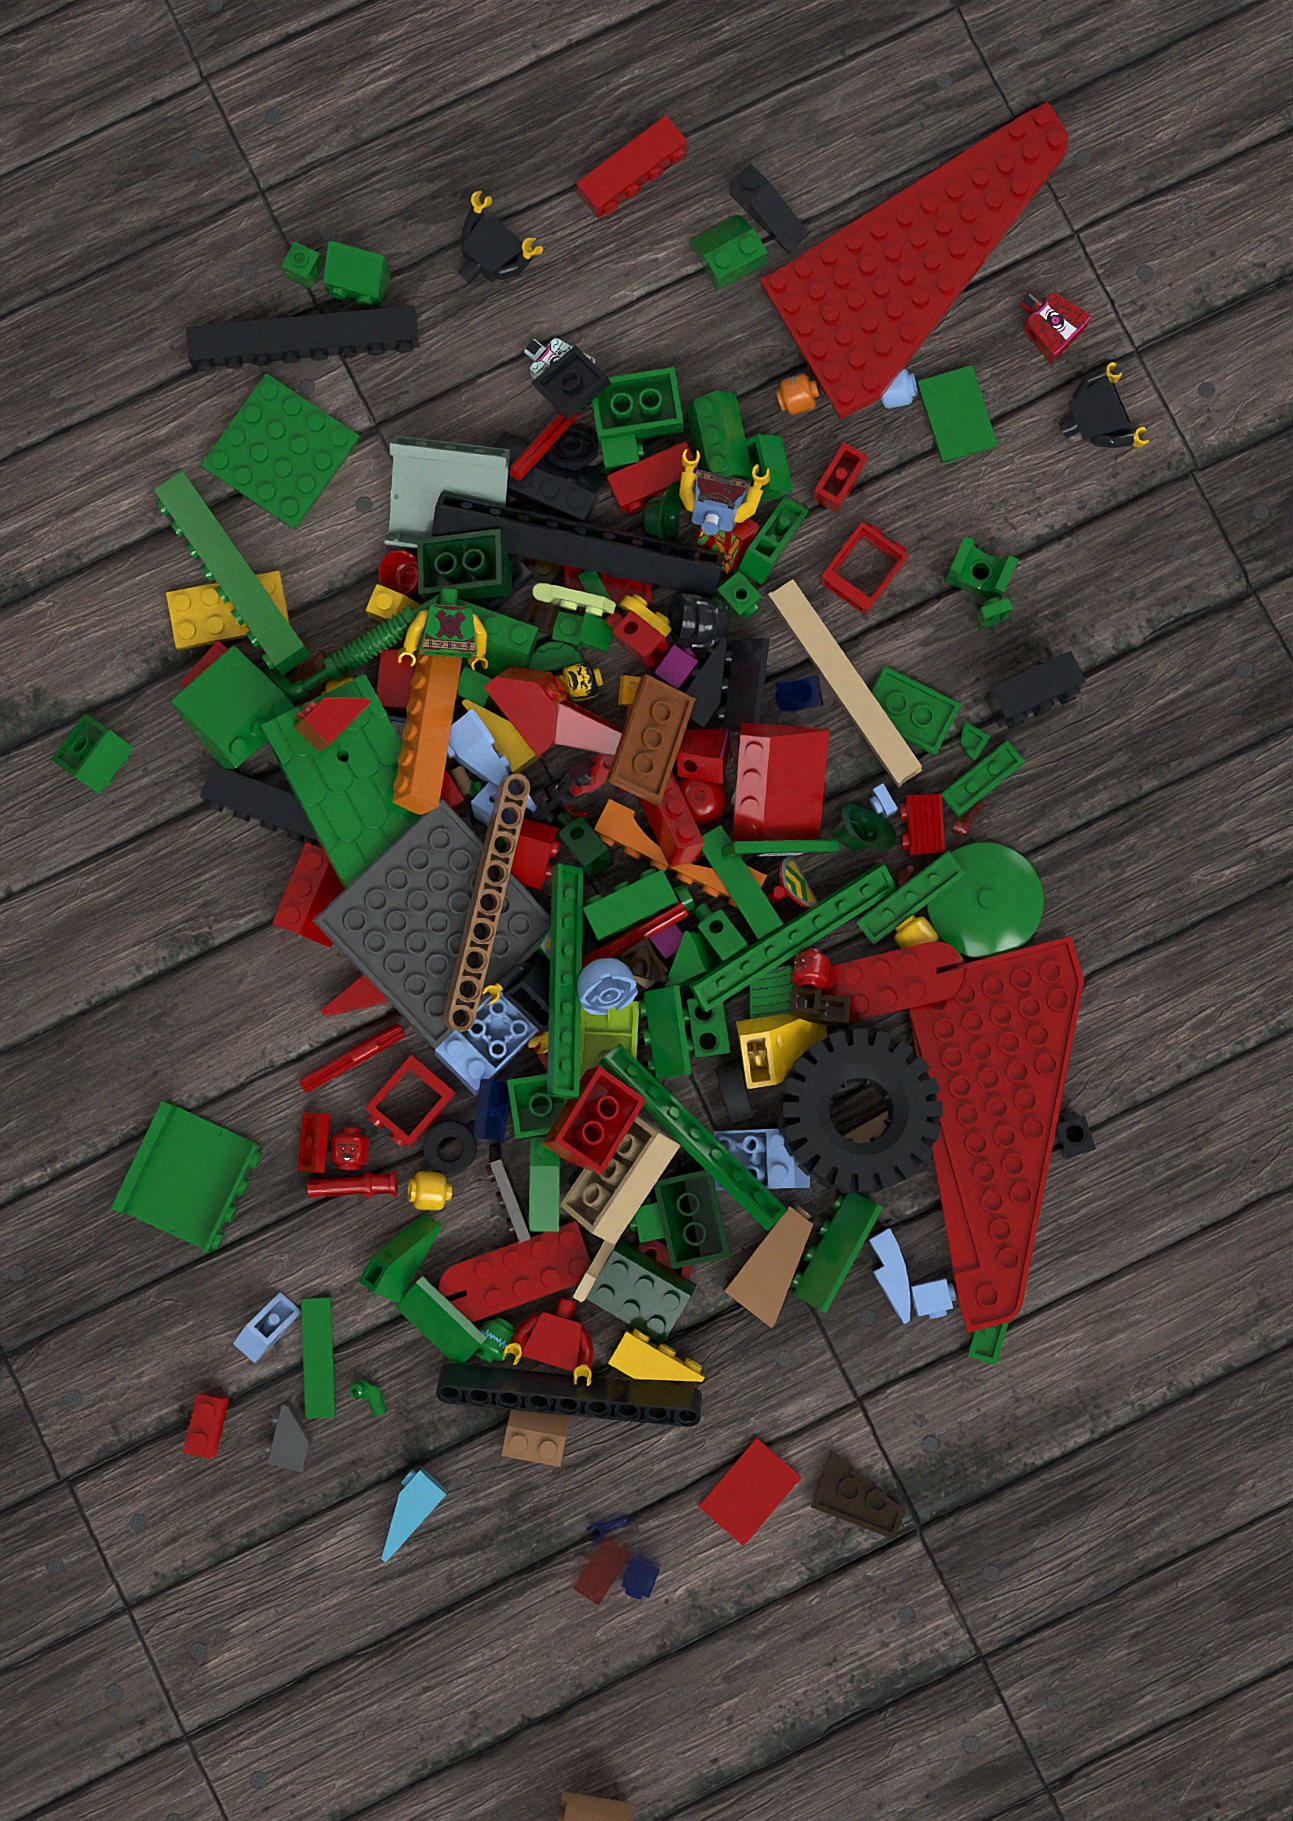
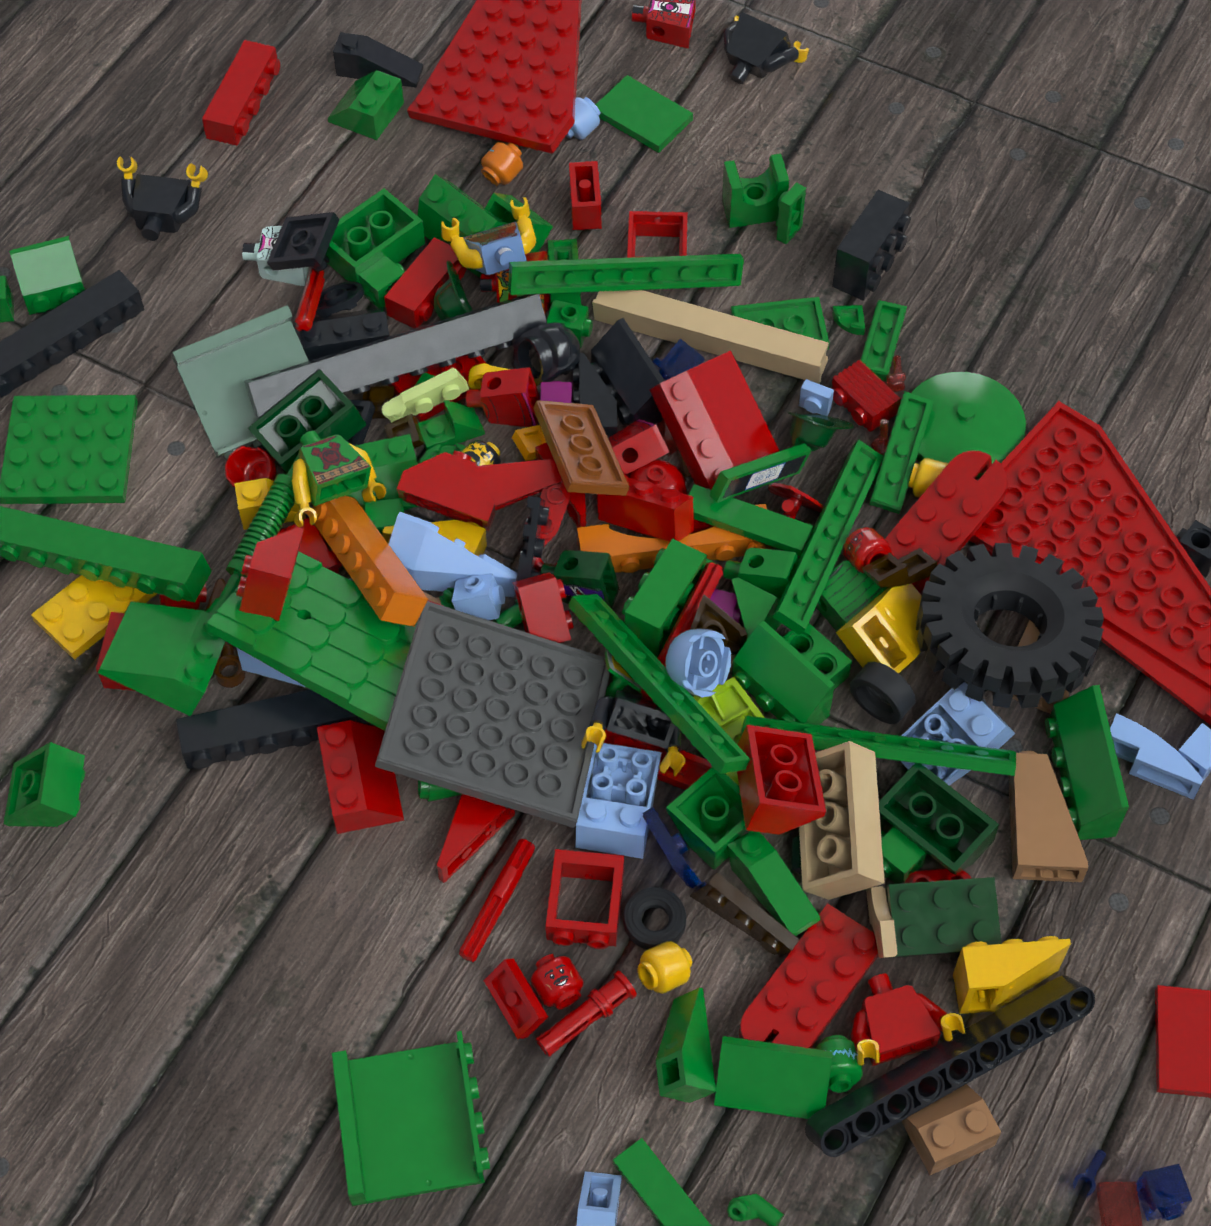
camera: 40 degrees left, 25 degrees down
(496, 891) = (533, 665): medium nougat beam -> none
(806, 592) = (624, 274): none -> green plate

